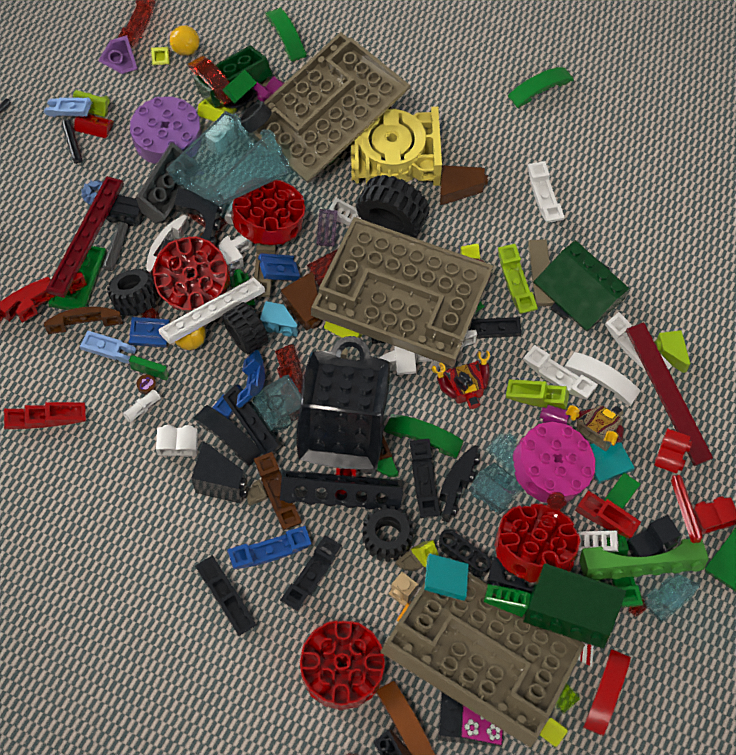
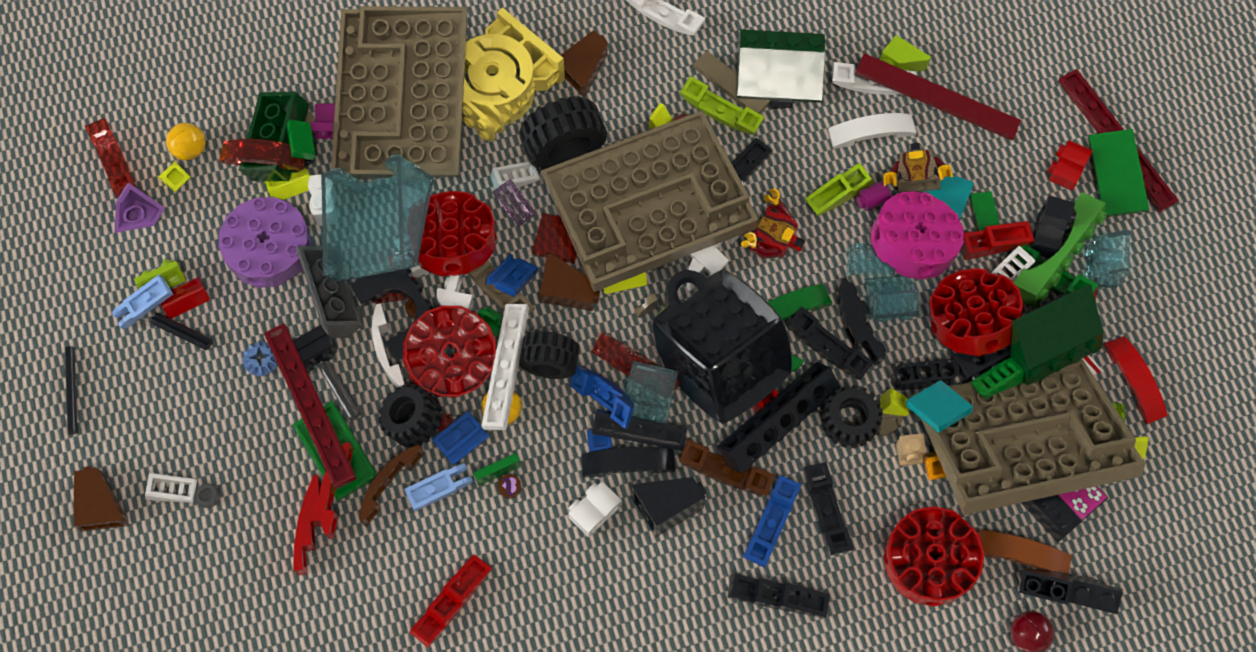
camera: 45 degrees left, 5 degrees up
(141, 405) = (528, 508): white pin -> none
(255, 116) = (355, 157): black tyre -> none
(256, 493) = (711, 487): dark tan tile -> none
(278, 319) = (564, 320): medium azure slope -> none
(287, 34) = (273, 52): green slope -> none
(463, 381) = (779, 232): black bush -> none
(556, 501) = (956, 264): clear red plate -> none
(558, 375) = (839, 159): white slope -> none
(672, 451) = (989, 142): red brick -> none
(686, 509) = (1047, 179): red axle -> none

